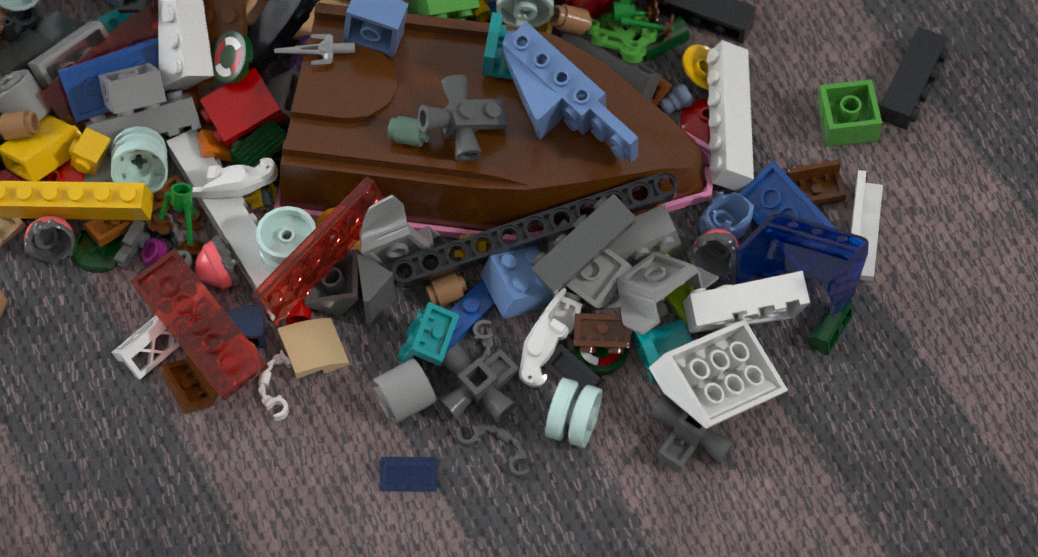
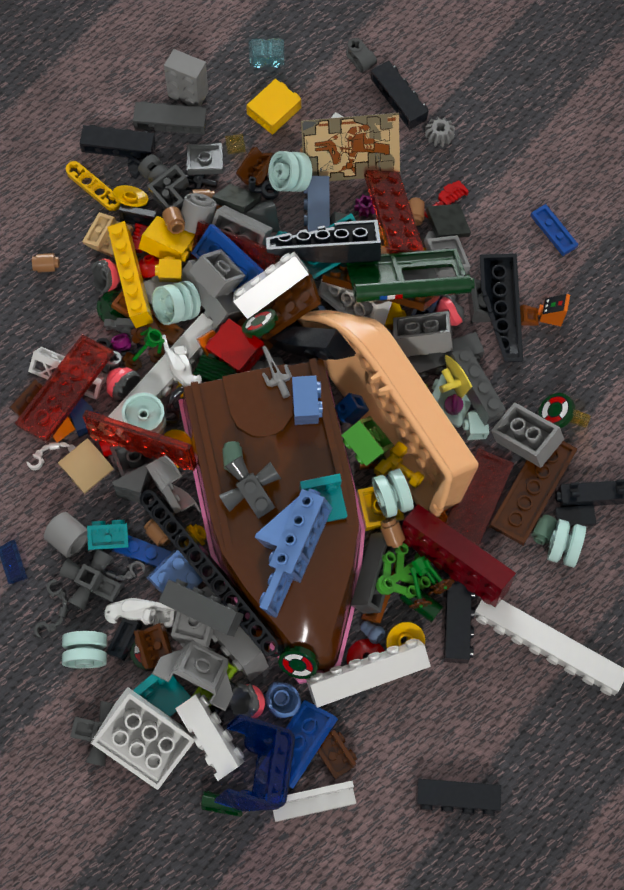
camera: 65 degrees right, 10 degrees up
(693, 174) = (298, 662): none -> tile
(849, 113) = (405, 758): bright green brick -> none

